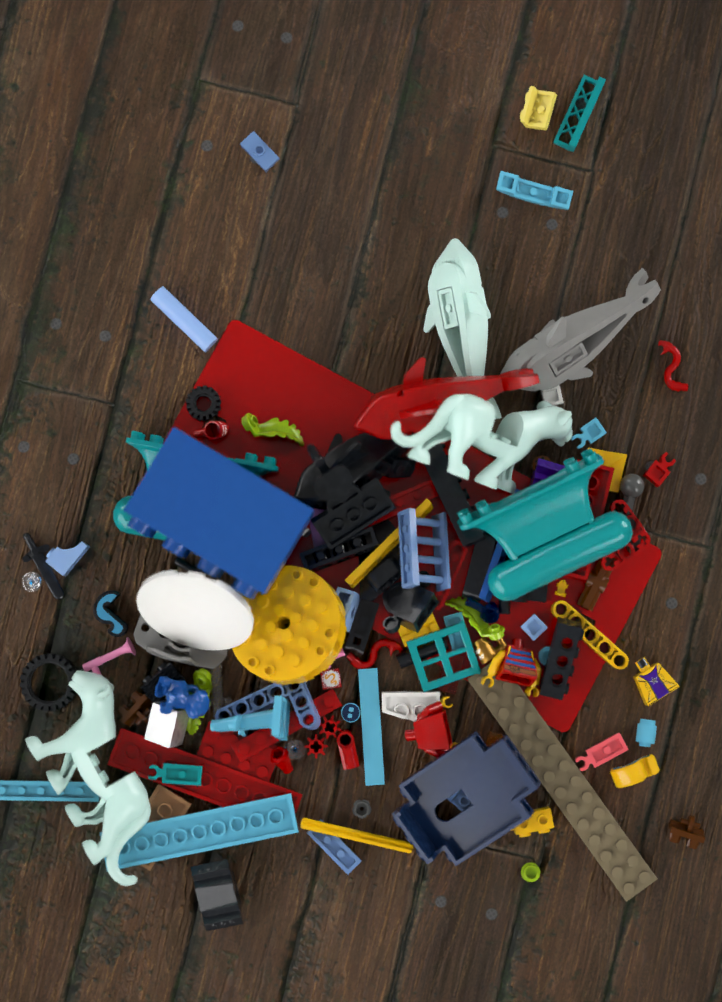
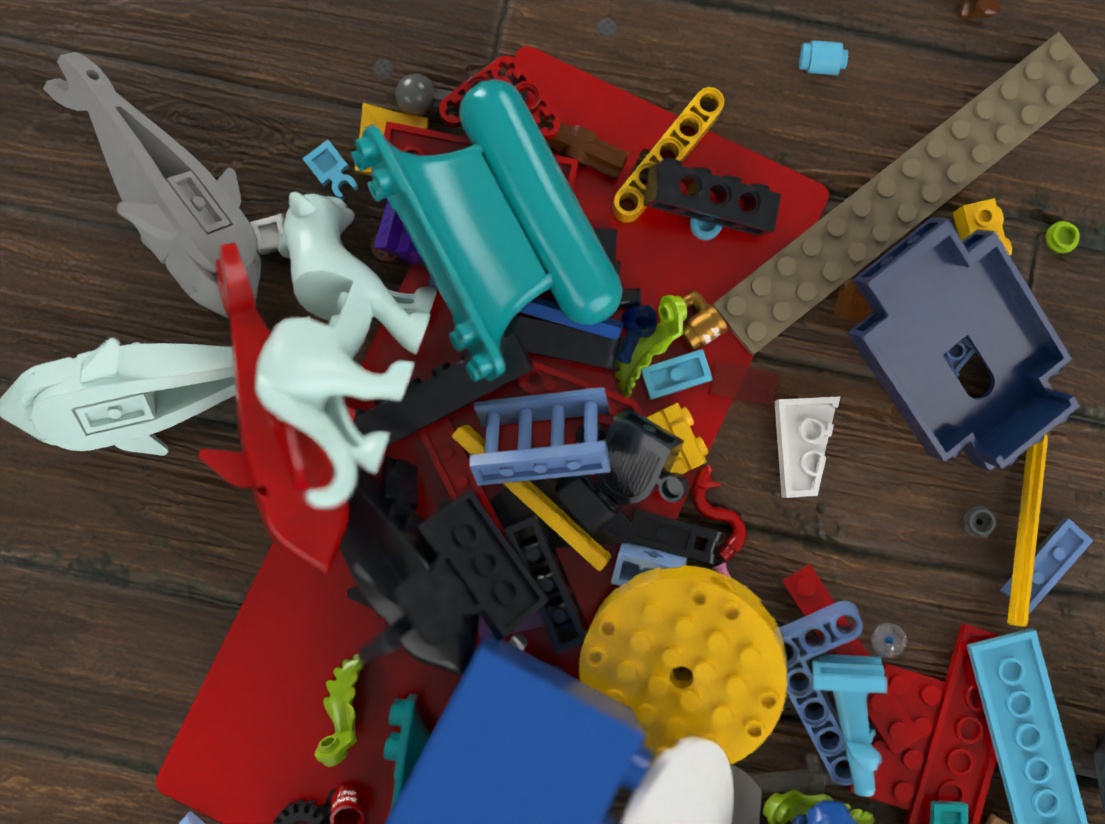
camera: 90 degrees left, 0 degrees up
(281, 759) = (909, 664): red cone -> none
(320, 742) = (887, 611): red gear -> none
(328, 732) = (857, 584): red gear -> none
(331, 679) = (766, 583): tile -> none
(347, 751) = (884, 550): red piece -> none
(350, 712) = (819, 548): dark blue tile -> none
(371, 726) = (841, 512): medium azure tile -> none
(425, 651) = (712, 432): black piece -> none
(432, 729) = (843, 407): red torso -> none
(443, 656) = (751, 382): teal window -> none
(515, 666) = (729, 274): torso -> none
(533, 627) = (659, 247): light blue plate -> none
(561, 588) = (593, 206): yellow piece -> none
(603, 751) = (858, 127): coral plate -> none
(635, 771) = (892, 71): yellow animal -> none
(653, 681) = (740, 48): torso -> none
(658, 470) = (388, 54): red plate -> none
(671, 384) = (181, 45): red animal -> none

